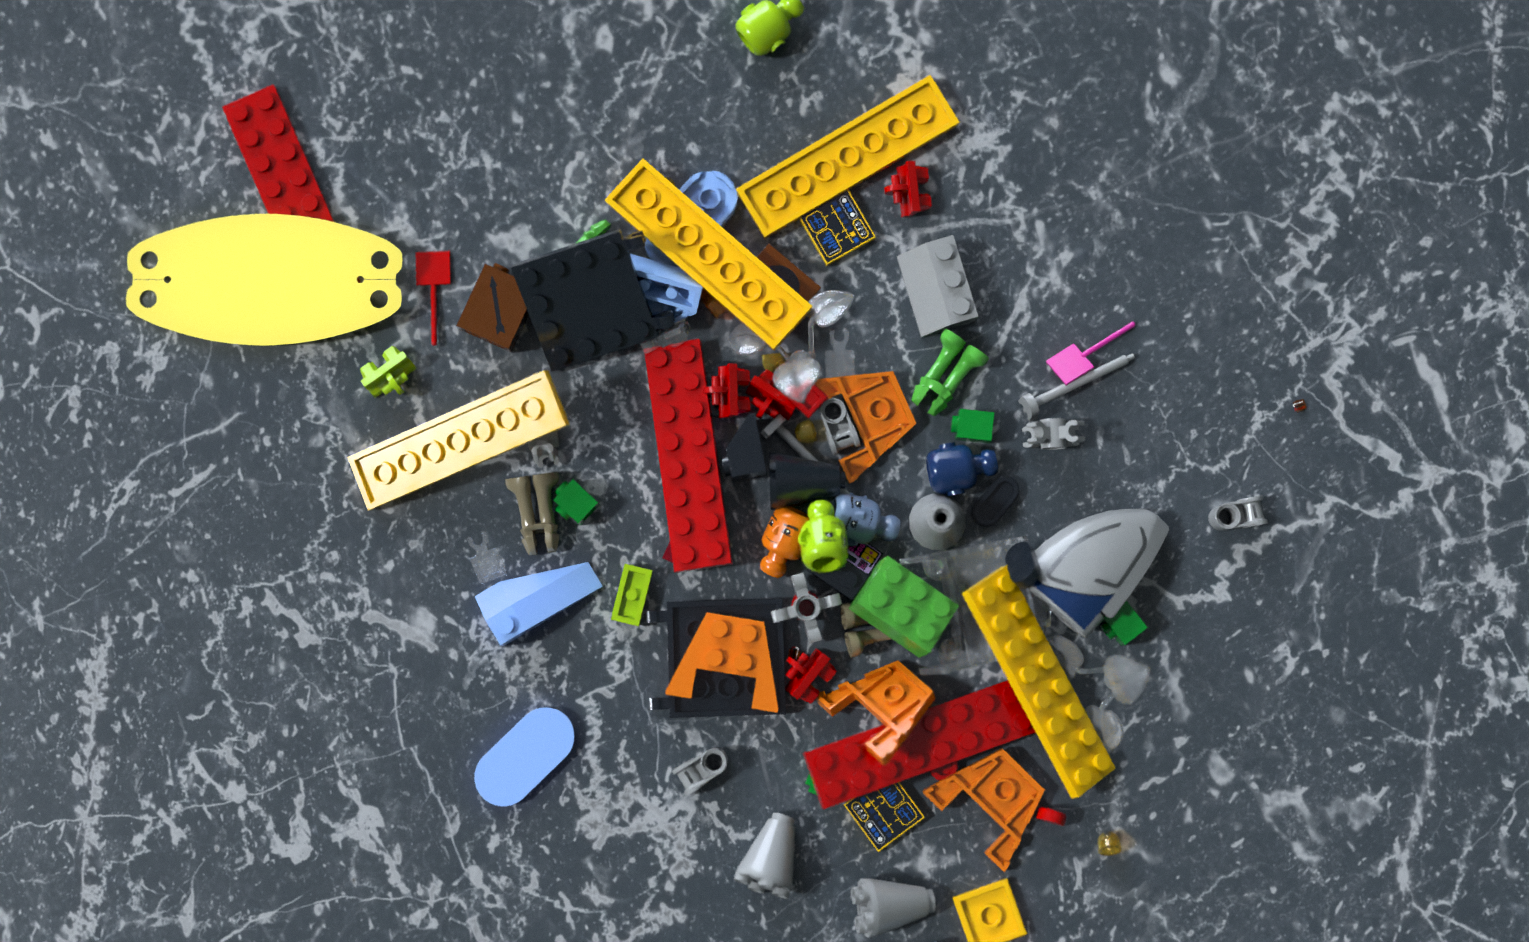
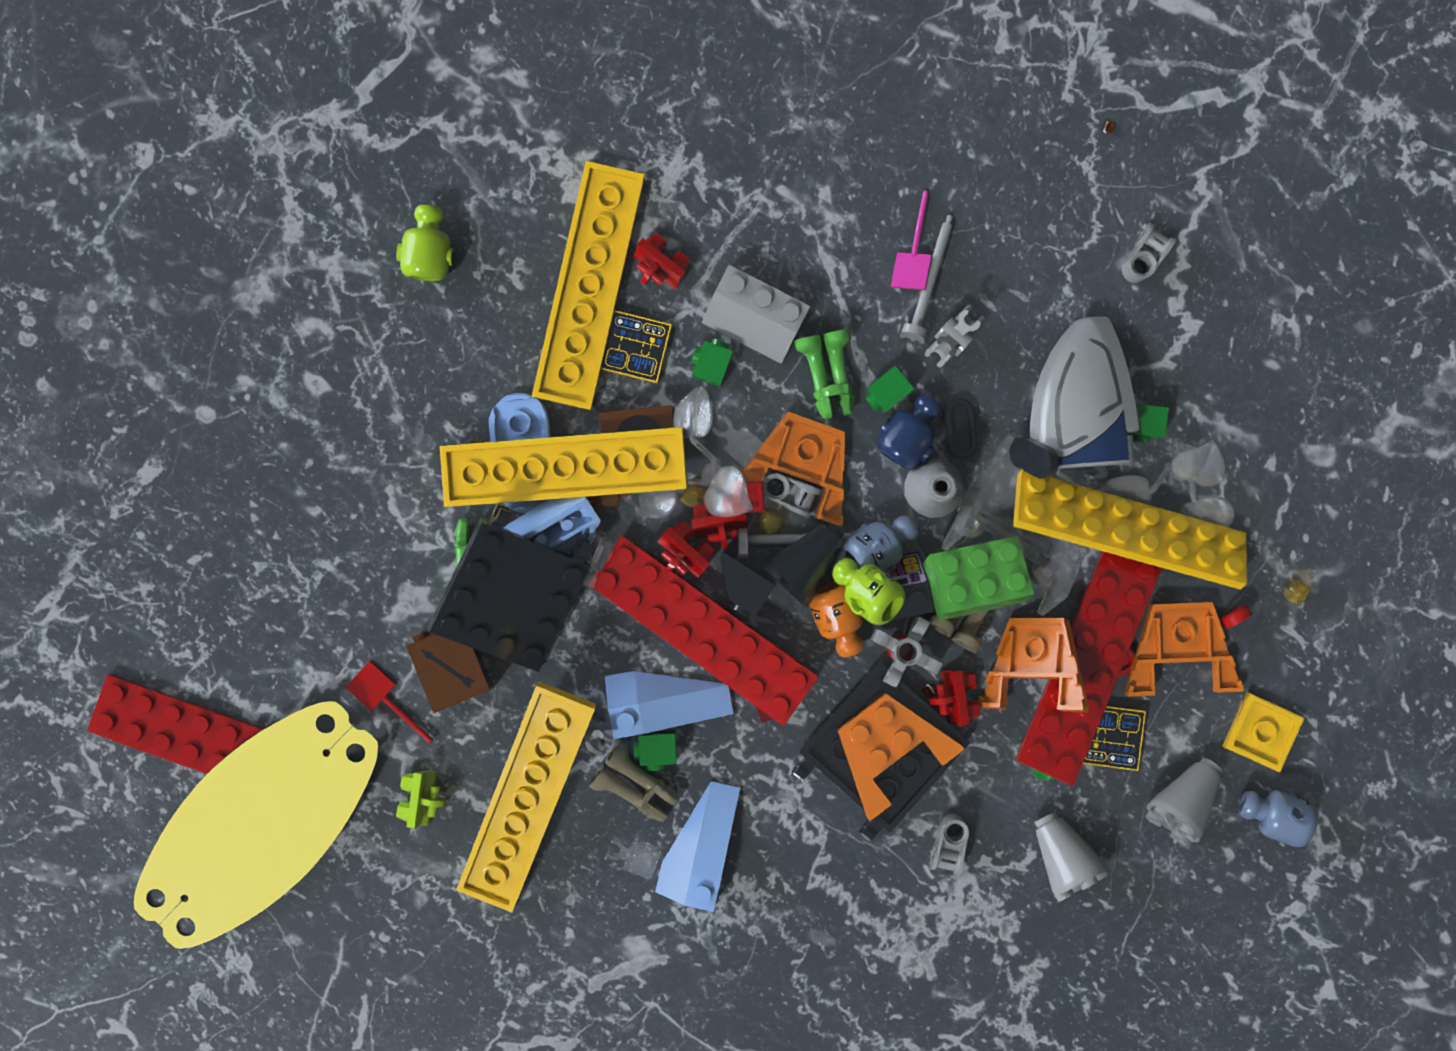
camera: 50 degrees left, 5 degrees up
(524, 756) = (813, 968): light blue tile -> none
(607, 471) = (656, 702): none -> light blue wedge
(631, 595) = (768, 772): lime plate -> none
(876, 288) = (711, 362): none -> green brick

